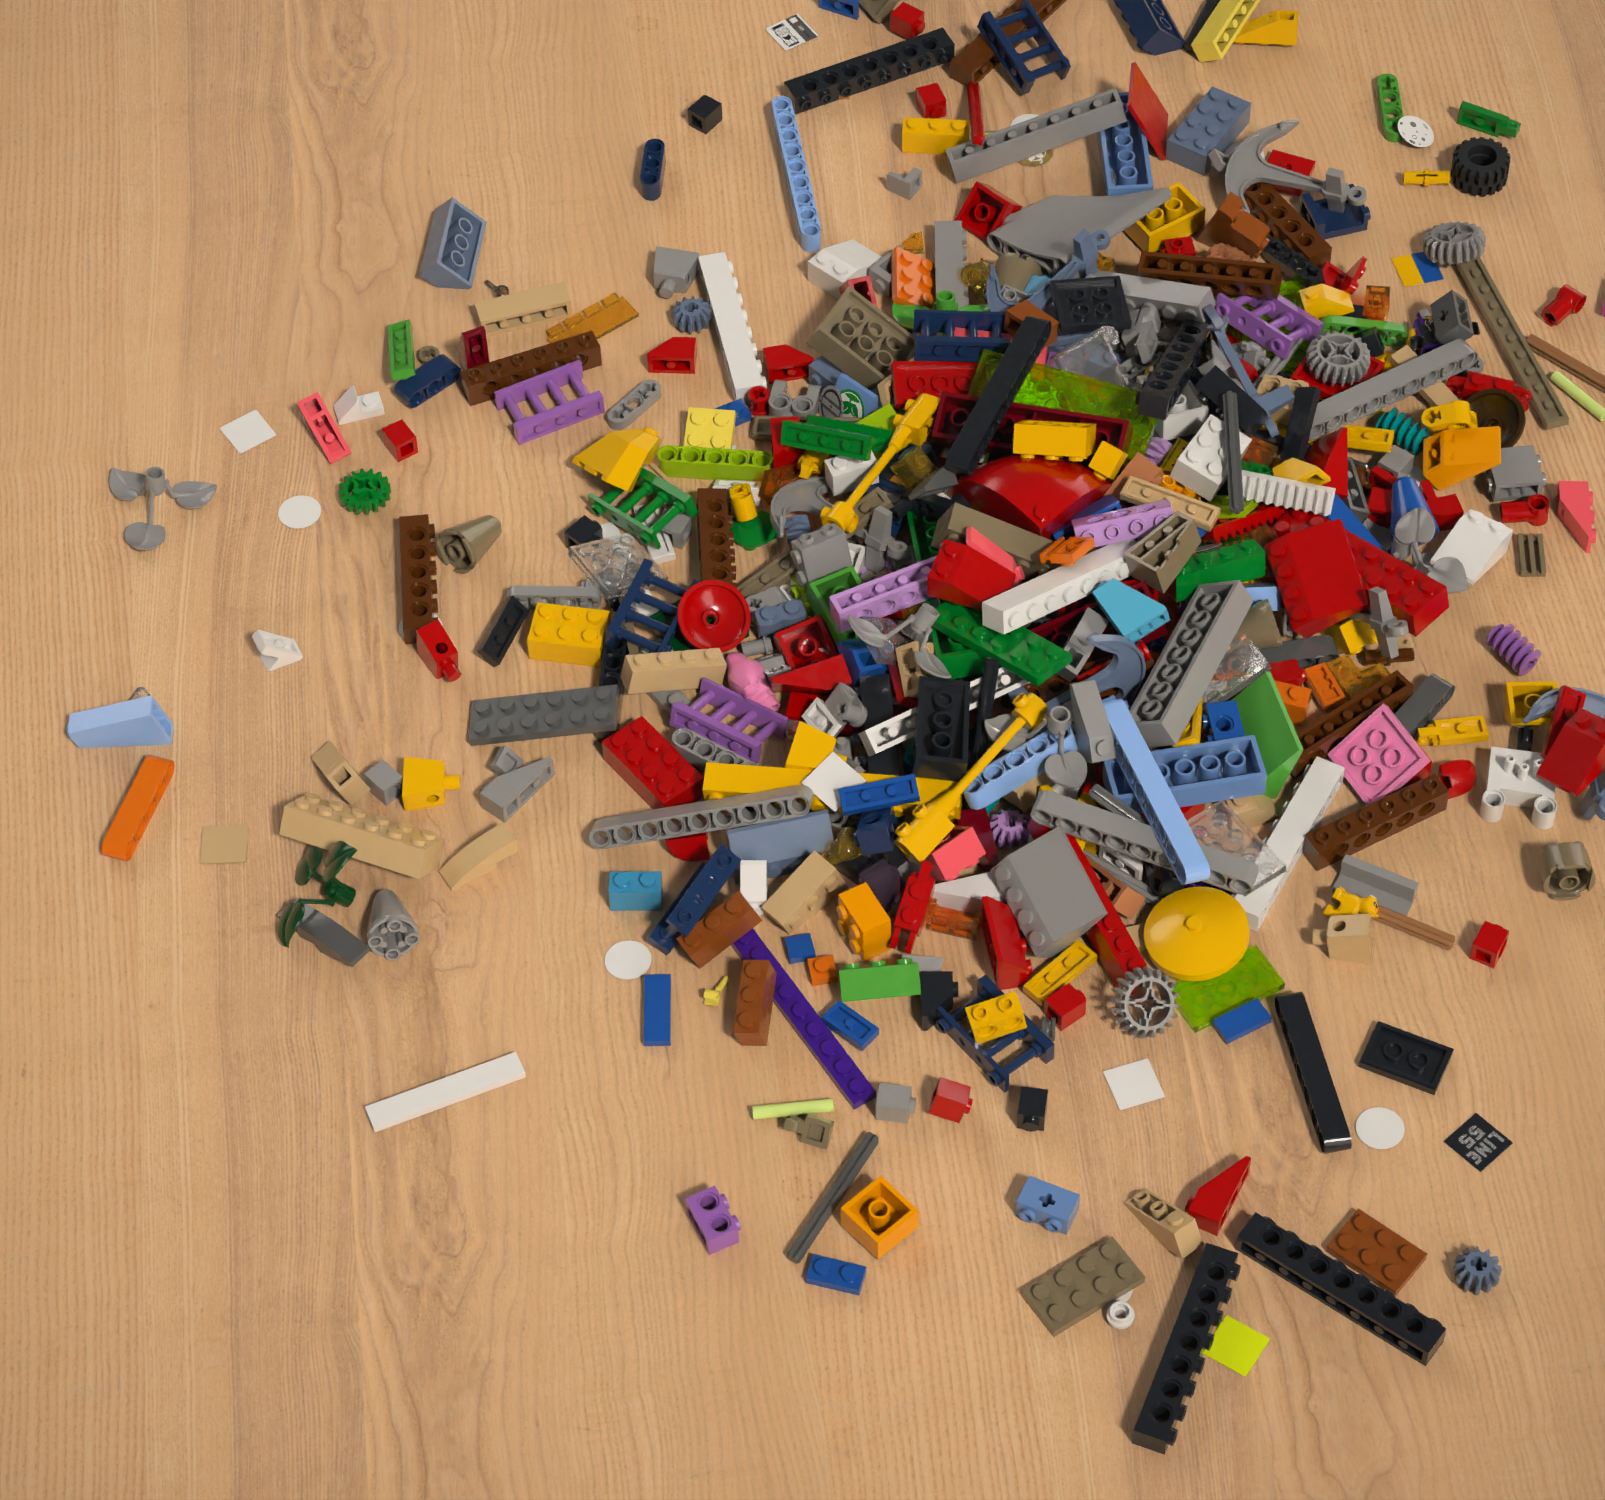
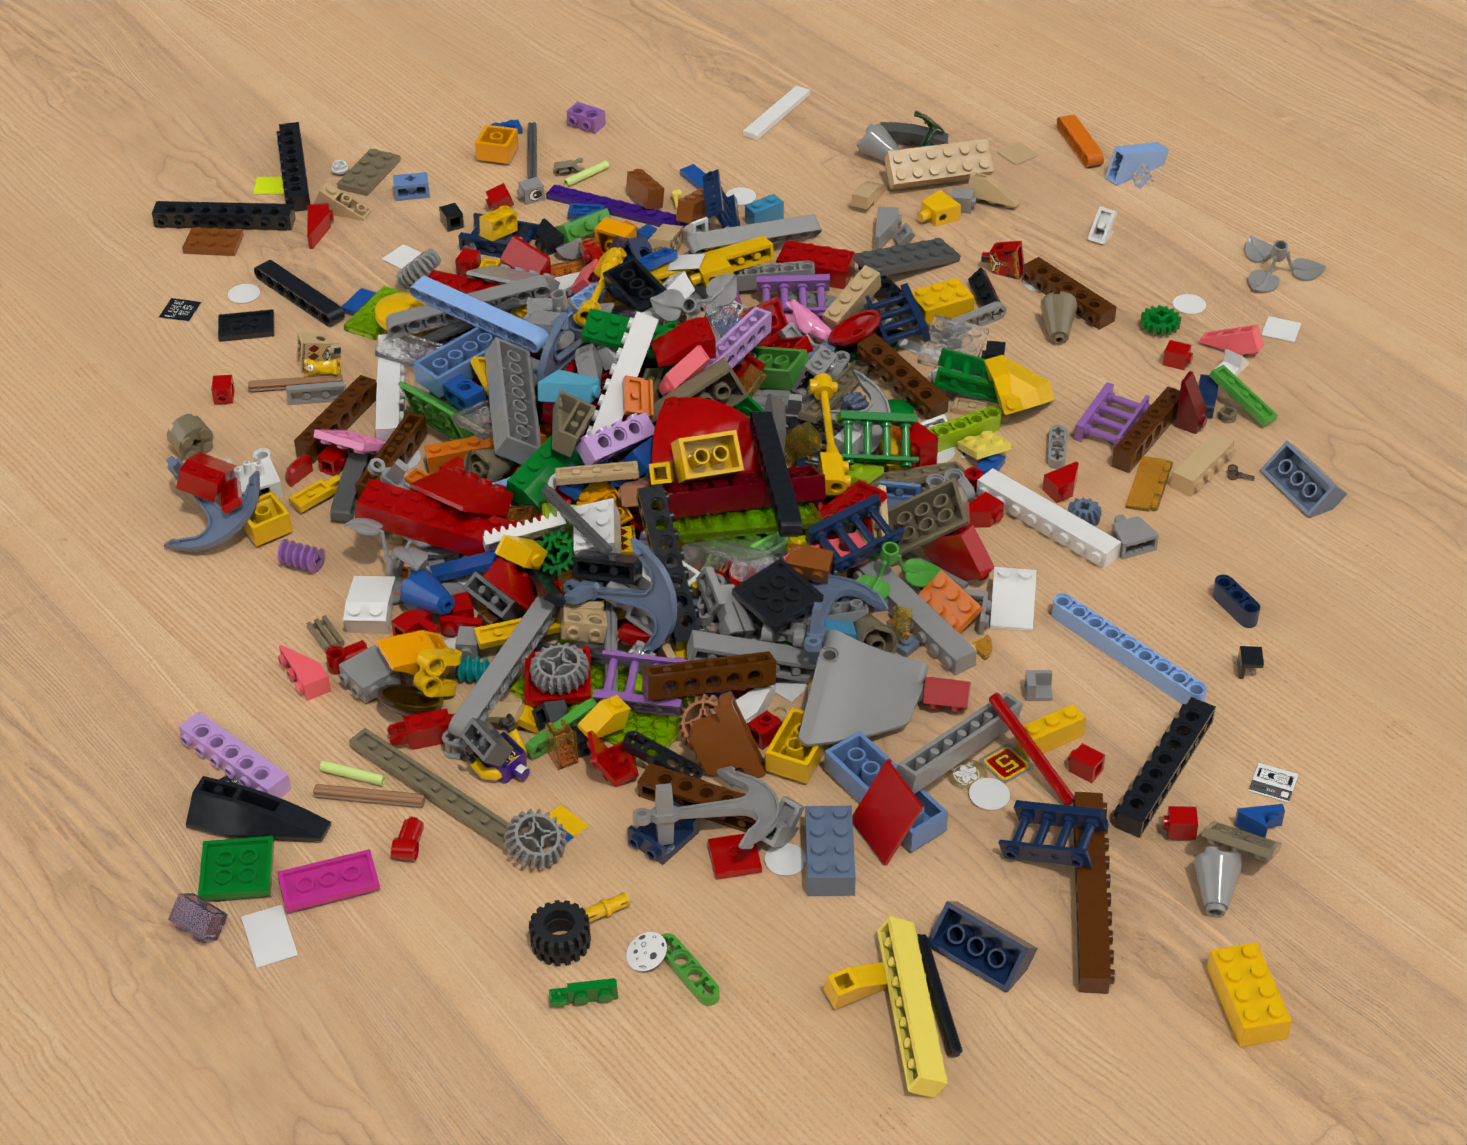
camera: 145 degrees right, 10 degrees down
(743, 502) = (911, 403): yellow beam -> none
(1486, 1274) = (148, 249): sand blue gear -> none

